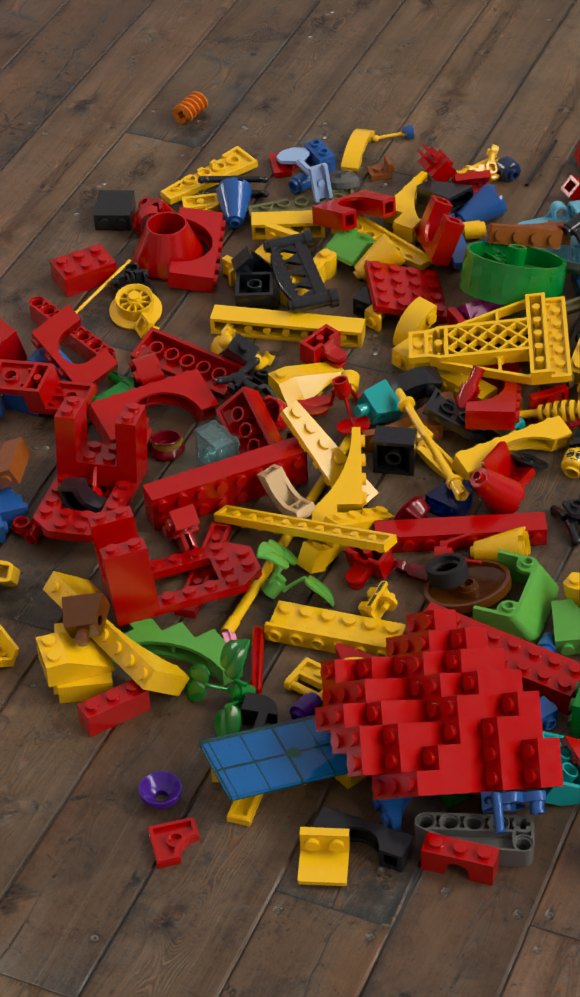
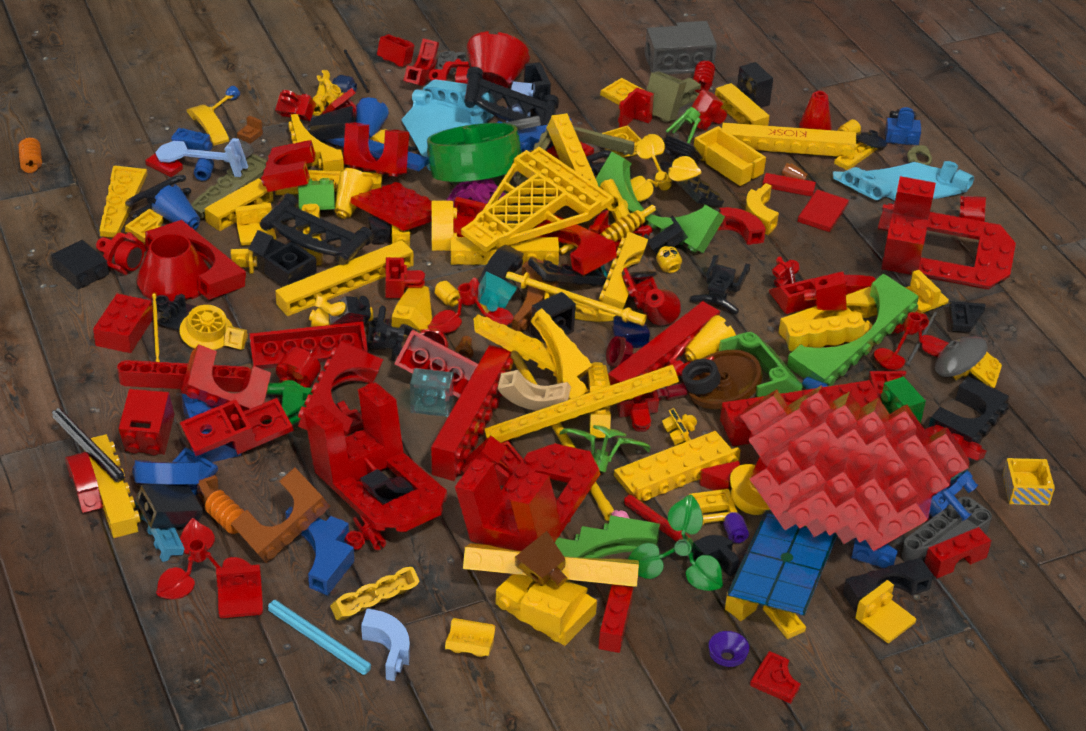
camera: 50 degrees left, 0 degrees up
(469, 390) = (550, 247): red arm -> none
(531, 235) = (452, 115): dark orange arch -> none

